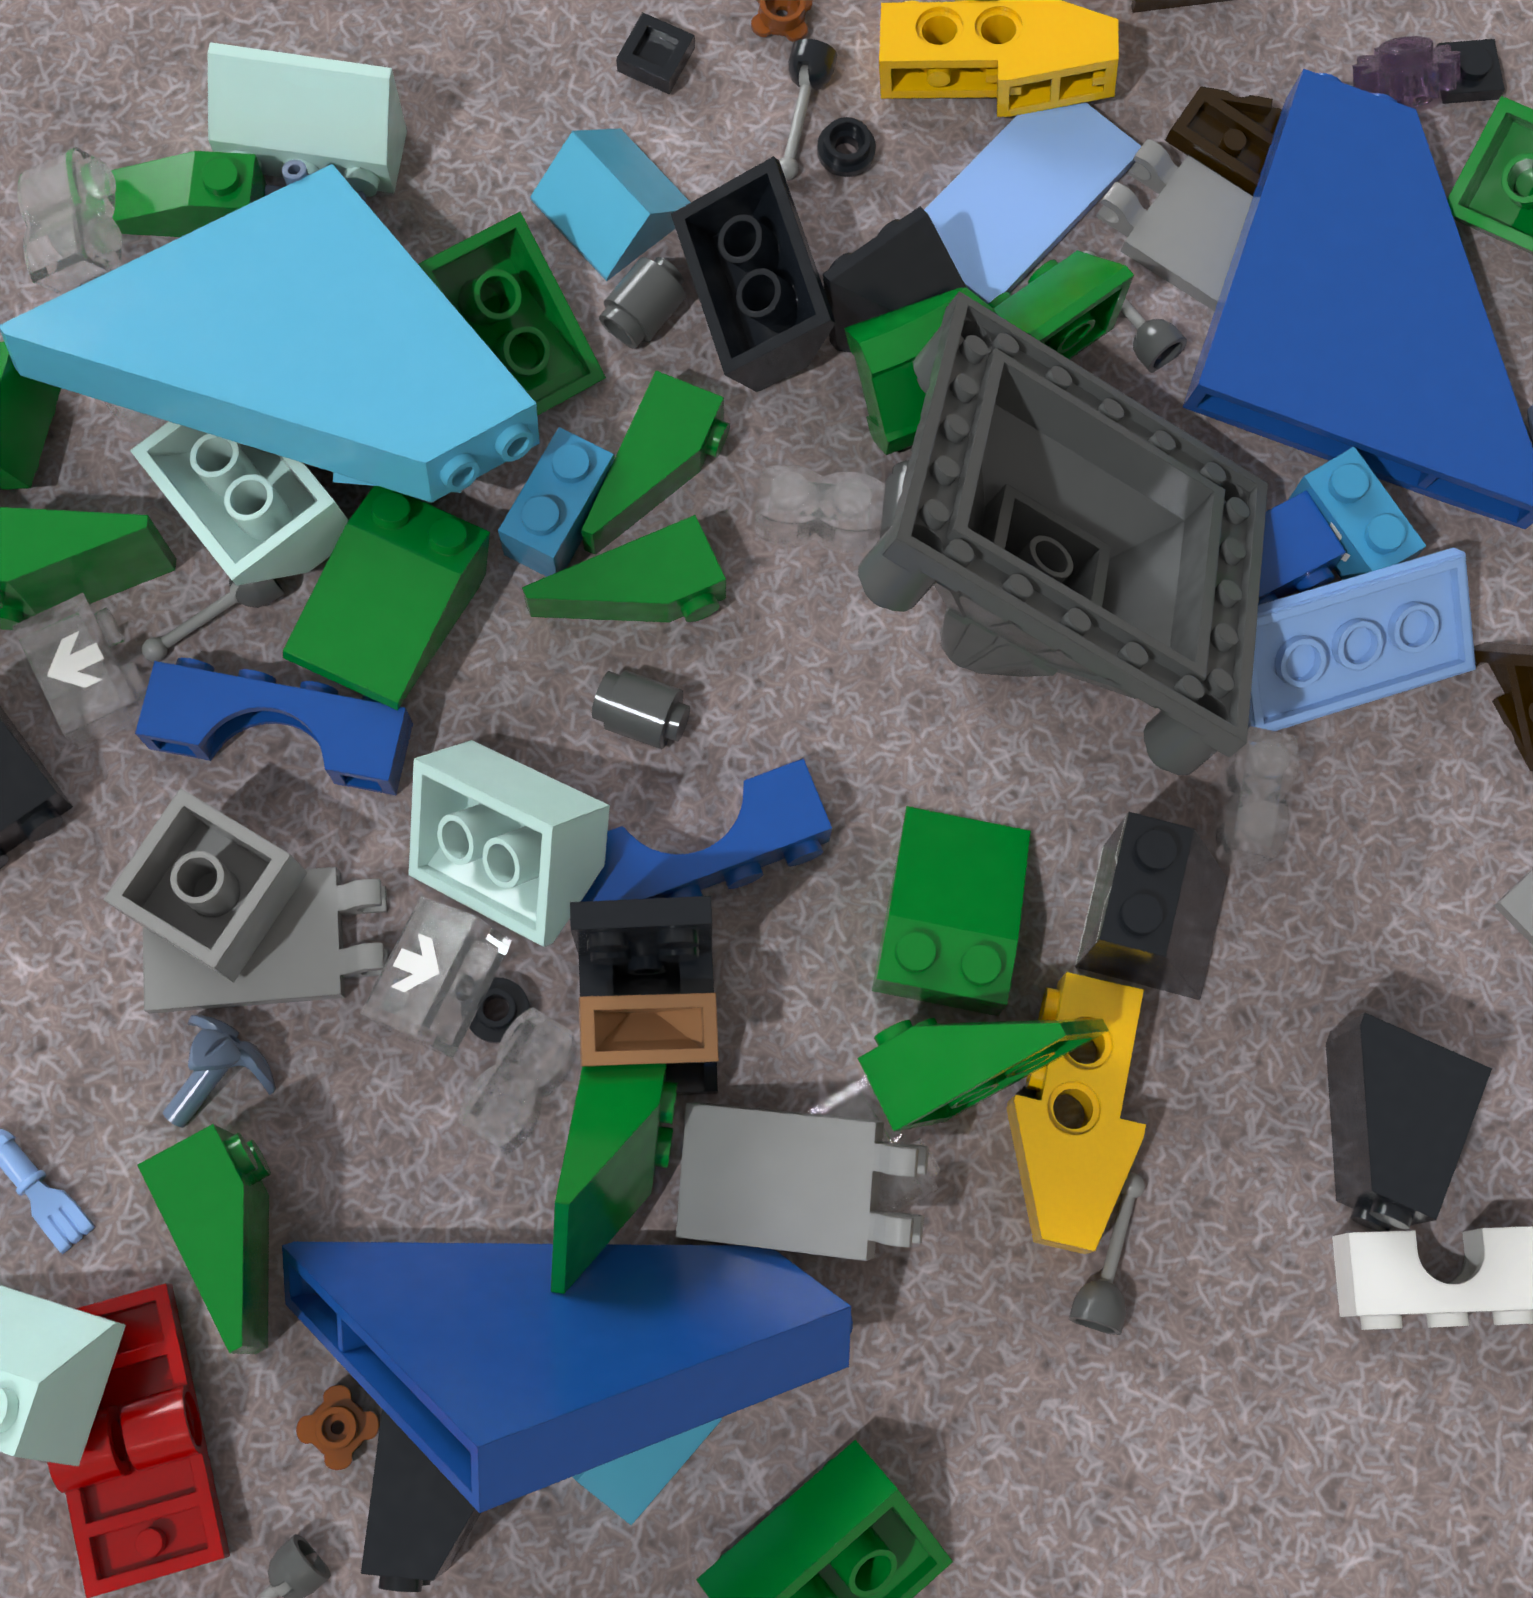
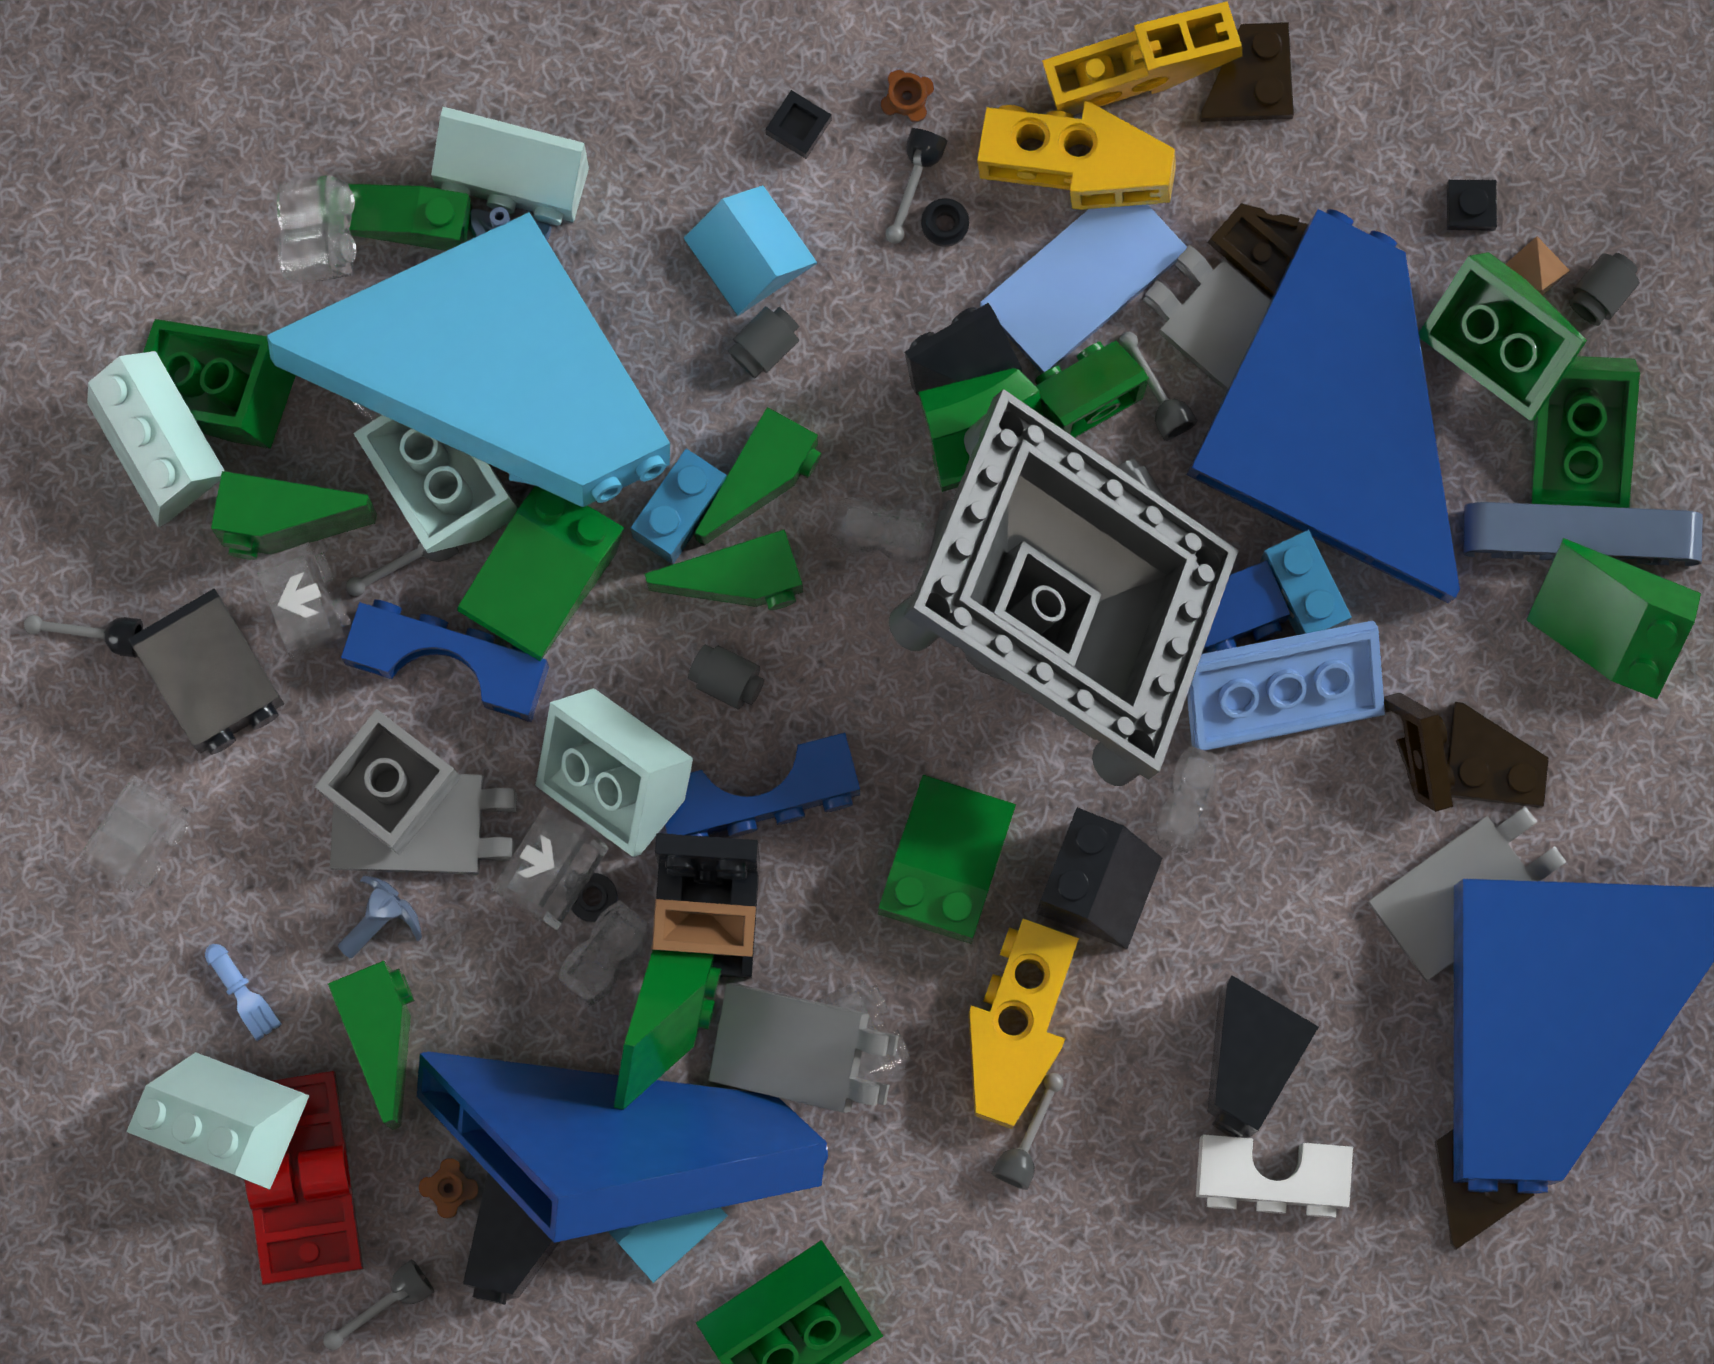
camera: 10 degrees right, 5 degrees up
(517, 310) = (658, 343): green slope -> none
(755, 277) = (852, 338): black slope -> none
(943, 1069) = (921, 980): green slope -> none
(1408, 70) = (1412, 208): clear purple gear -> none

